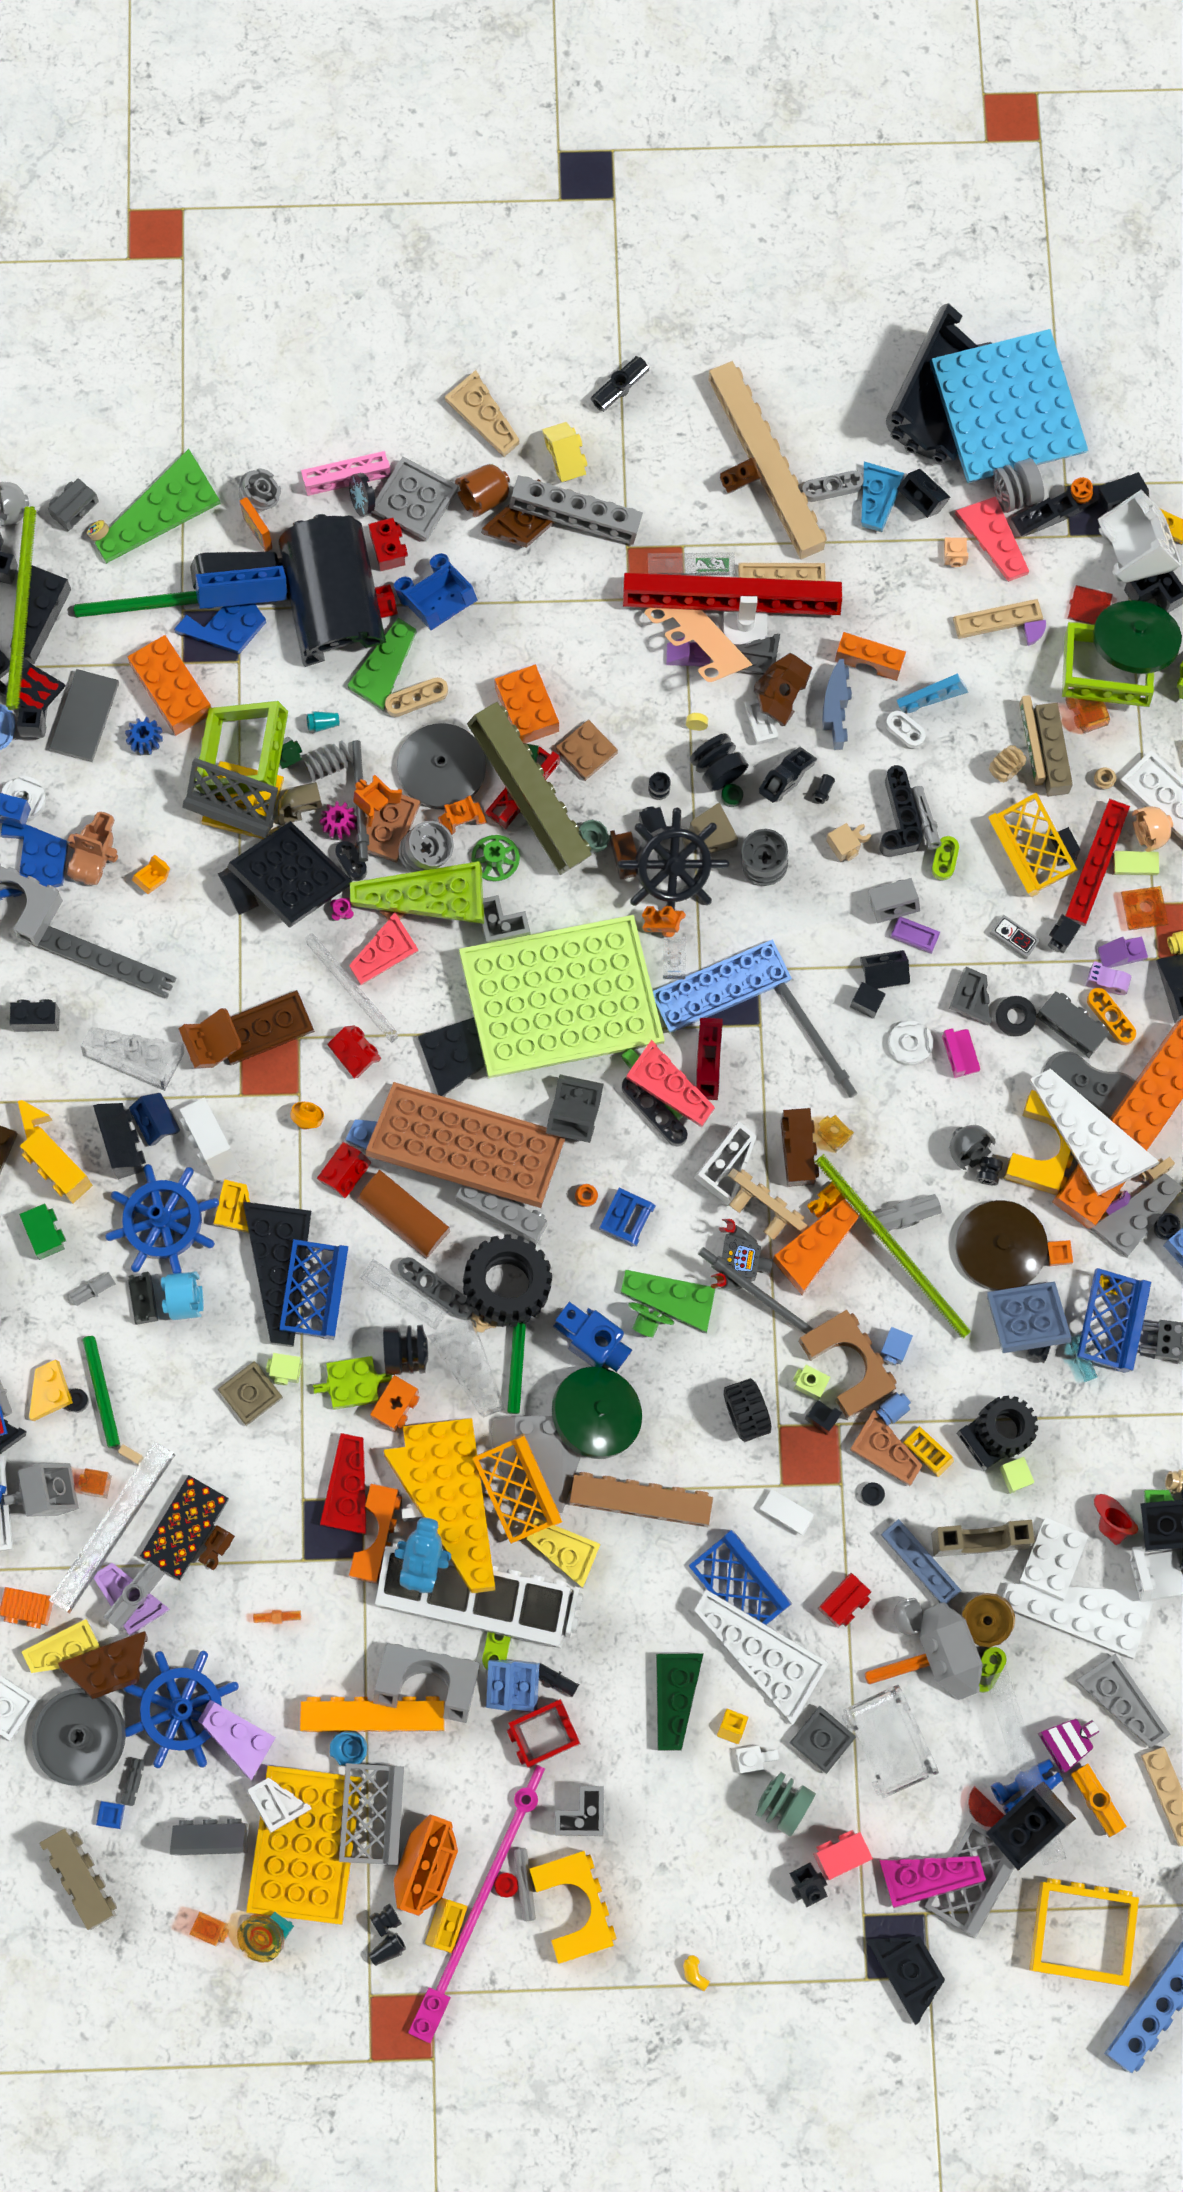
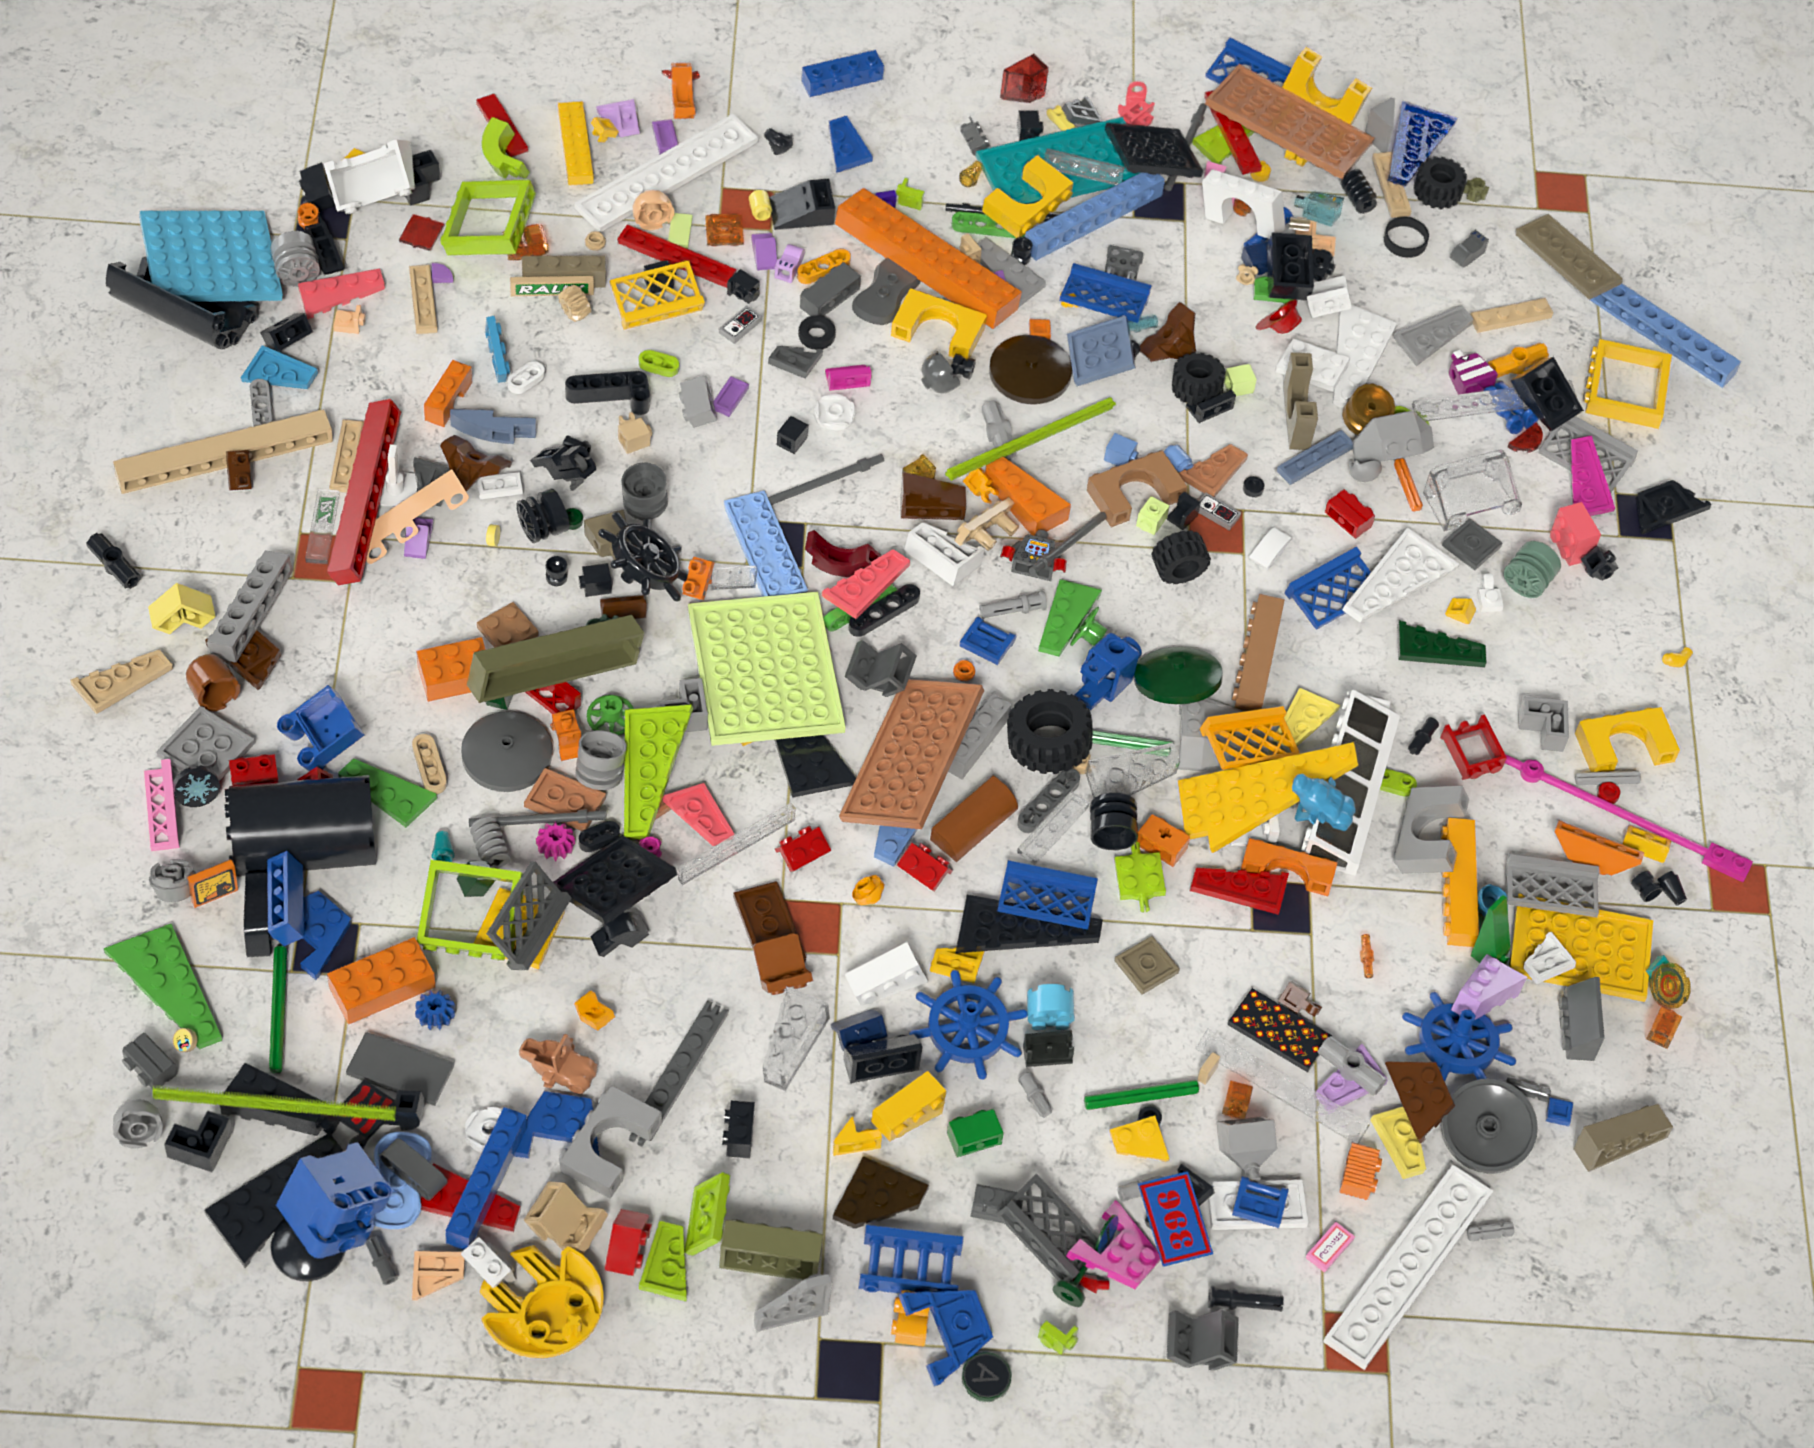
camera: 90 degrees left, 20 degrees down
(284, 1368) = (1125, 929): yellowish green brick -> none
(293, 1748) = (1494, 933): none -> green wedge
(298, 800) = (533, 851): dark tan brick -> none
(374, 796) = (542, 799): orange piece -> none
(512, 1685) = (1429, 766): medium blue slope -> none
(677, 1250) = (1023, 604): none -> light grey pin
(832, 1454) = (1218, 511): none -> tile
(886, 969) = (761, 419): black panel -> none
(928, 825) = (639, 365): light grey pin -> none
(943, 1465) = (1223, 427): yellow slope -> none
(1053, 1404) = (1173, 338): none -> reddish brown piece
(1096, 1142) = (951, 274): white wing -> none
(1137, 637) = (466, 191): dark green dish -> none

